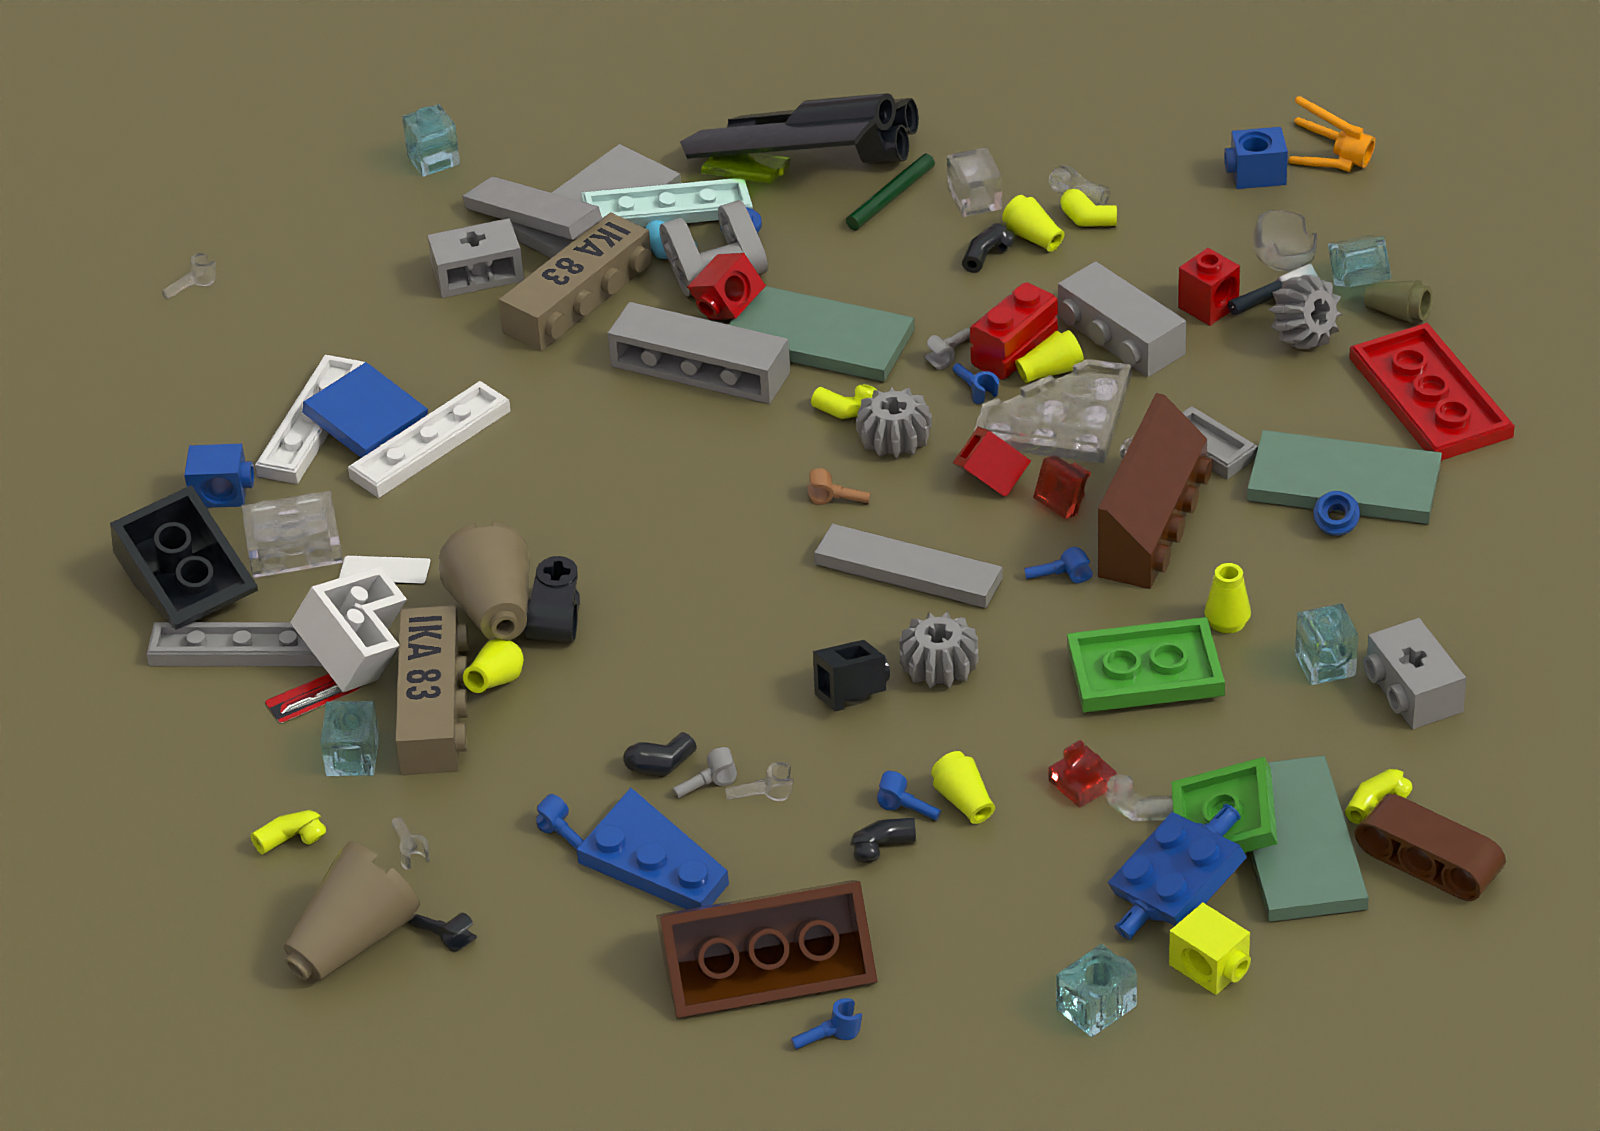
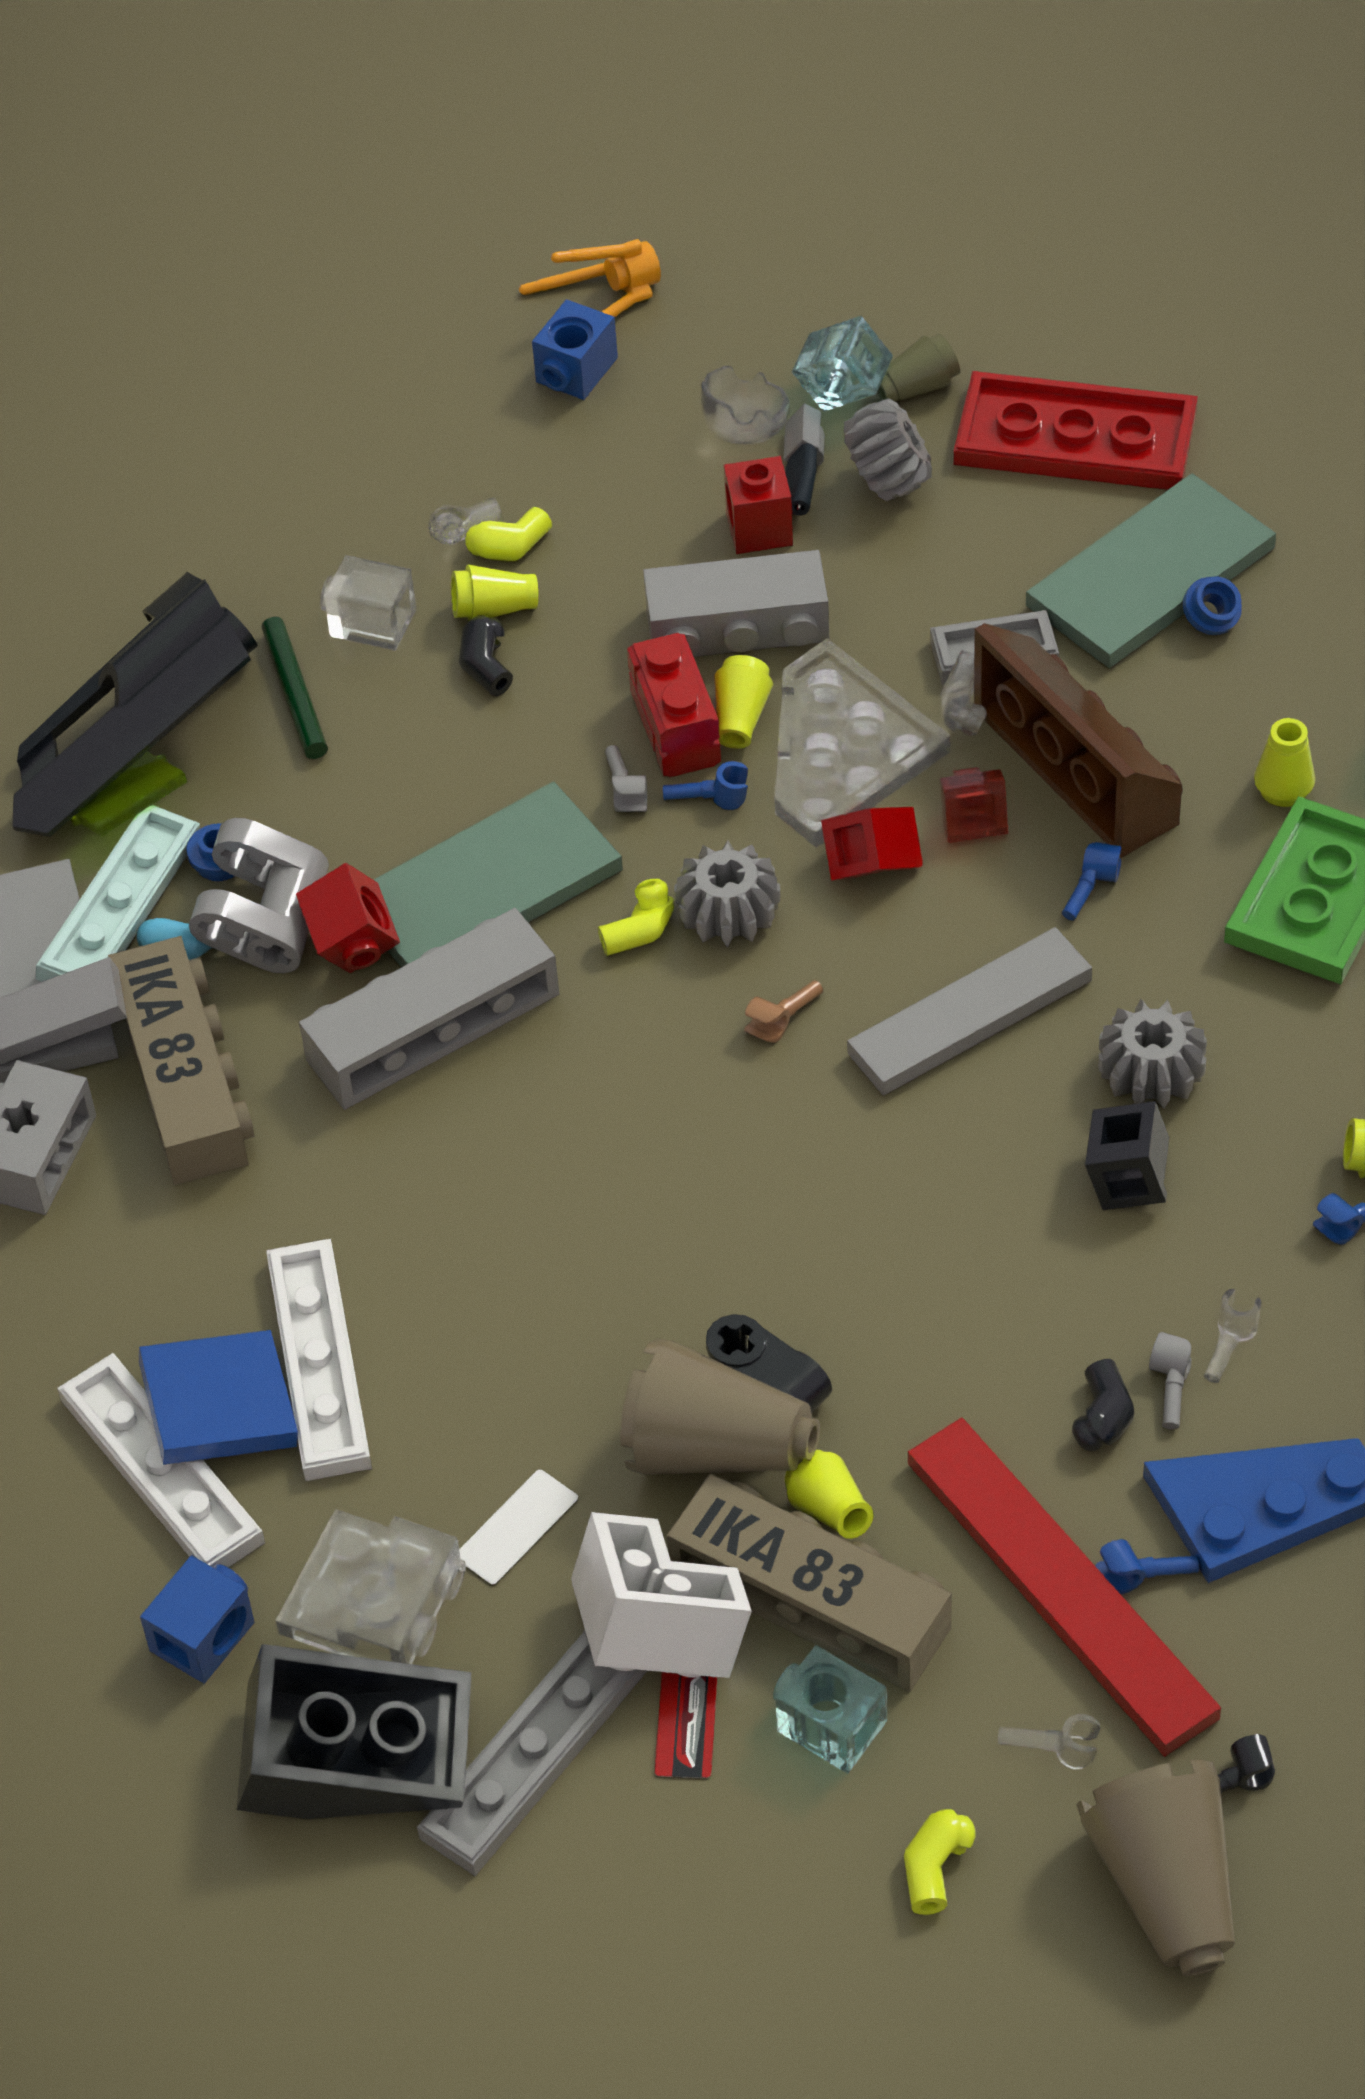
camera: 55 degrees left, 10 degrees up
(514, 802) = (1064, 1587): none -> red tile

